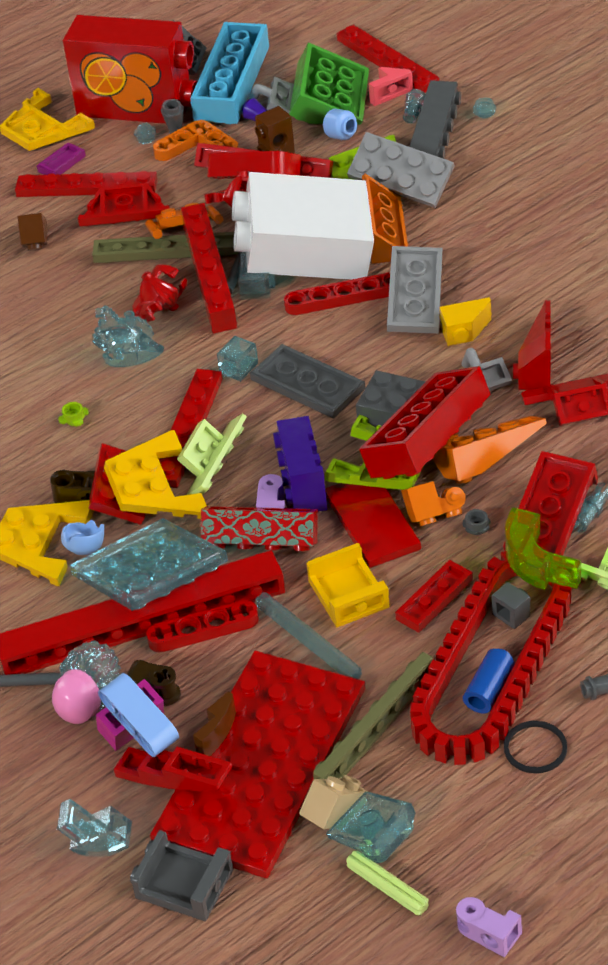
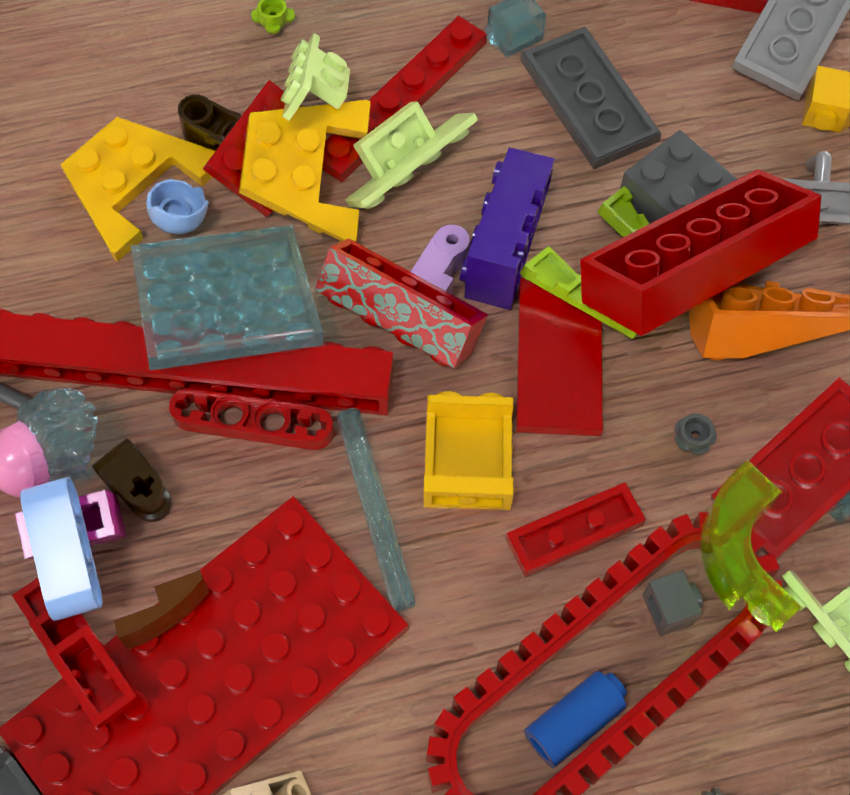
camera: 20 degrees right, 20 degrees up
(127, 430) = (314, 72): none -> yellowish green bracket
(375, 722) = (365, 714): olive plate -> none
(424, 504) = (638, 375): orange brick -> none

